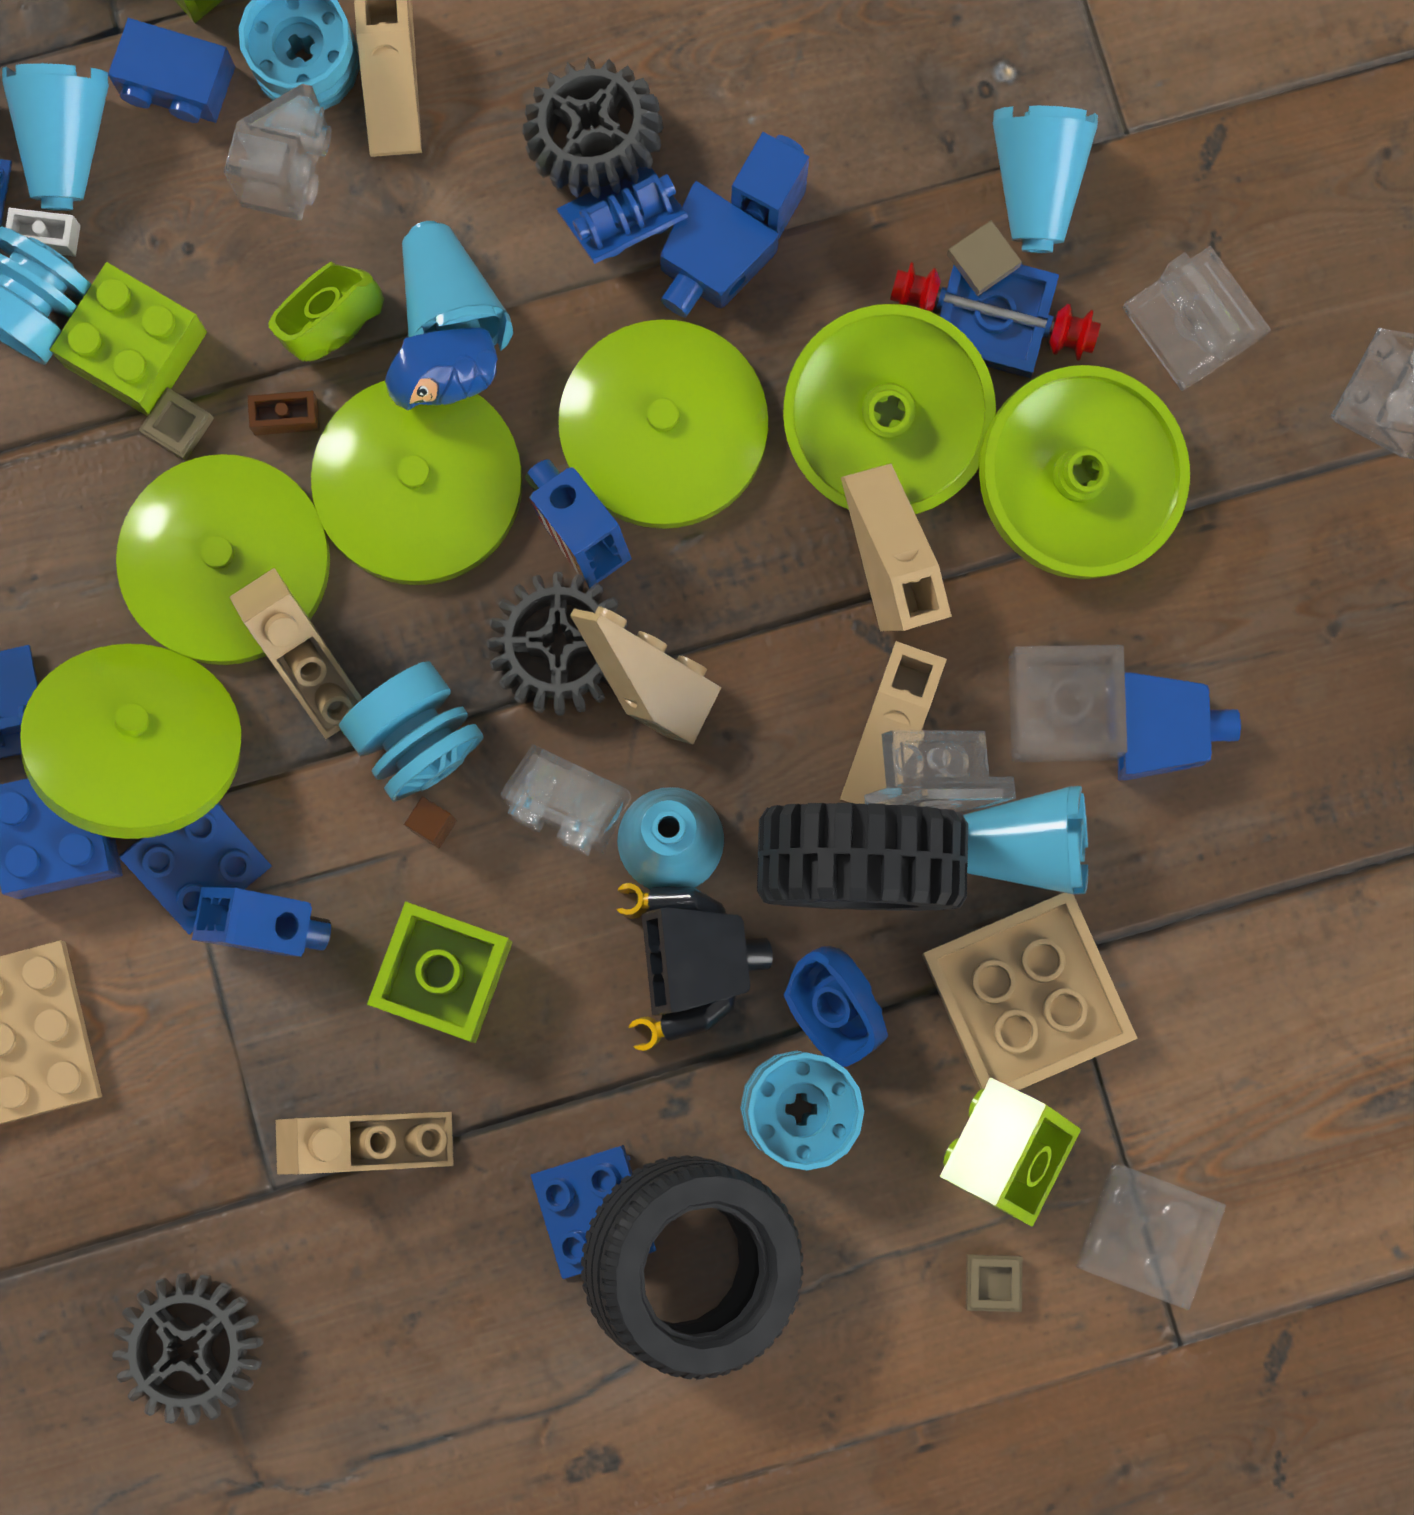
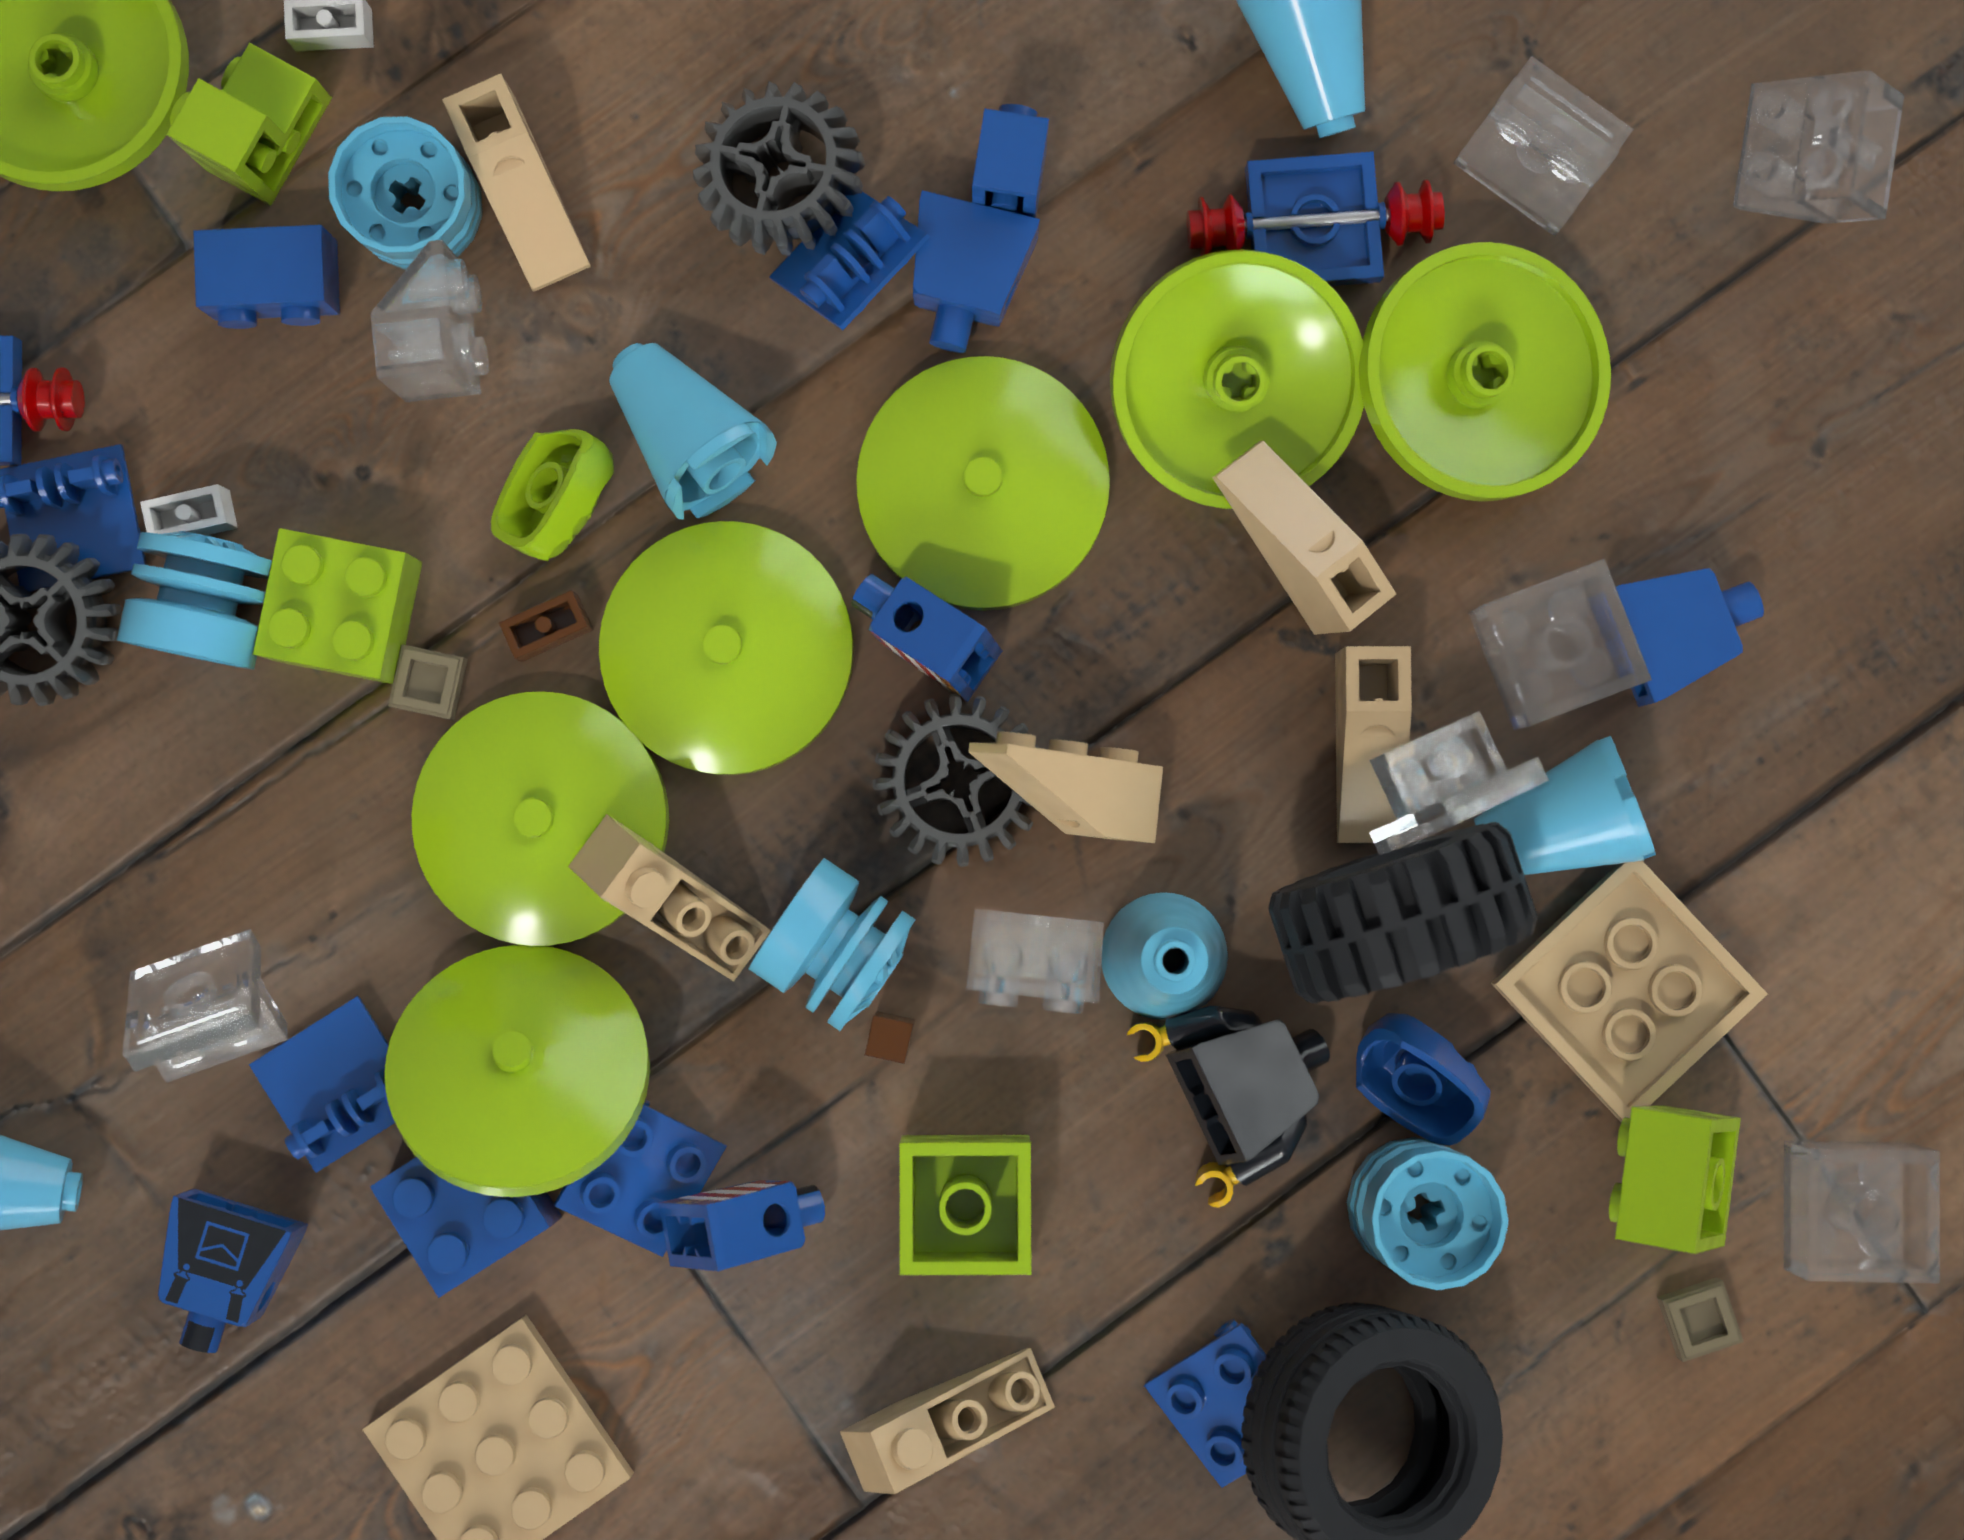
camera: 20 degrees left, 5 degrees up
(55, 128) = (159, 390): medium azure cone -> none
(442, 367) = (712, 514): blue piece -> none
(984, 258) = (1283, 163): dark tan tile -> none

